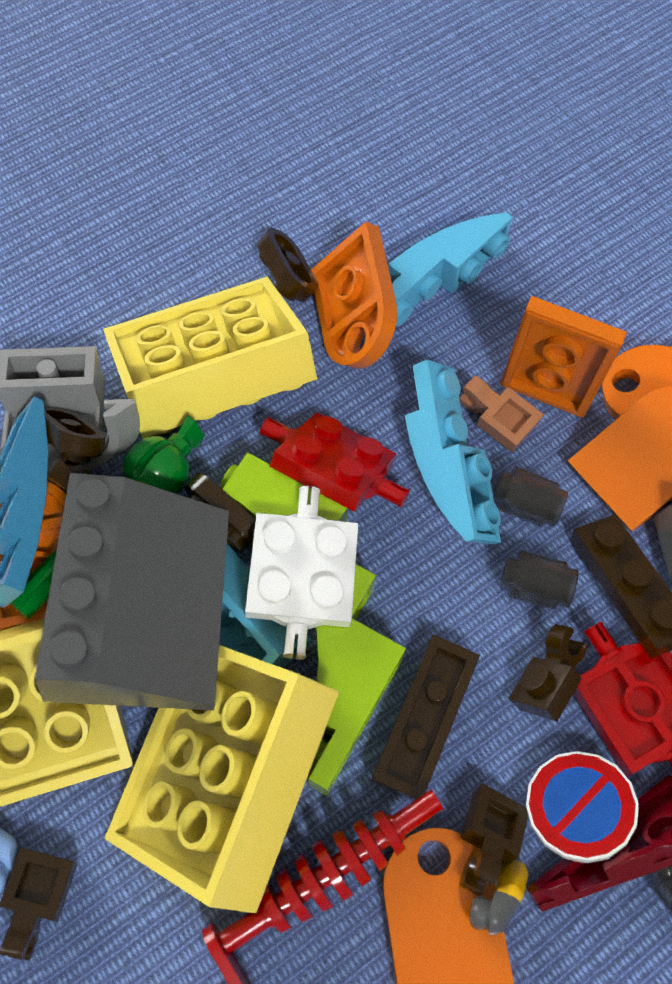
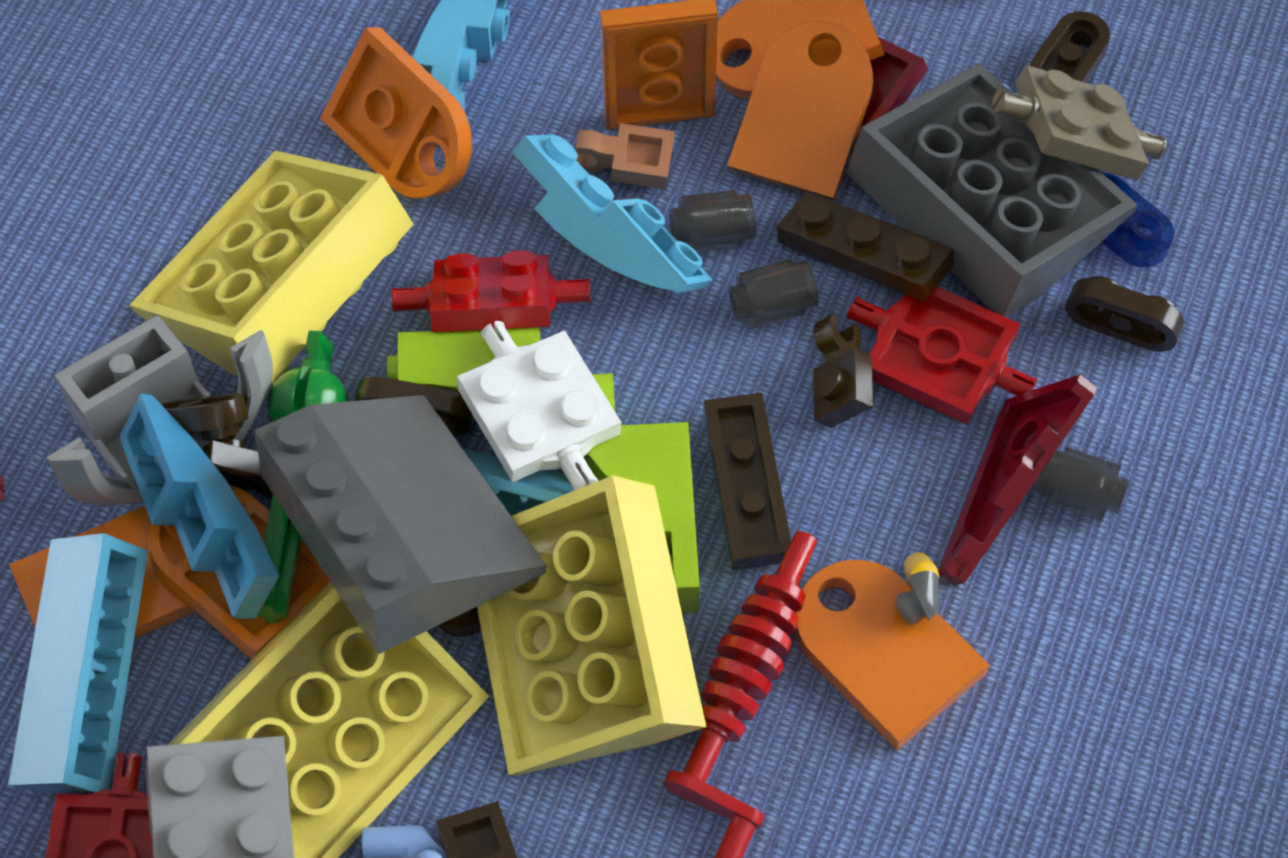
camera: 30 degrees left, 5 degrees down
(287, 265) = (282, 119): dark brown plate -> none
(497, 832) = (879, 536): dark brown plate -> none
(582, 807) = (941, 467): piece -> none

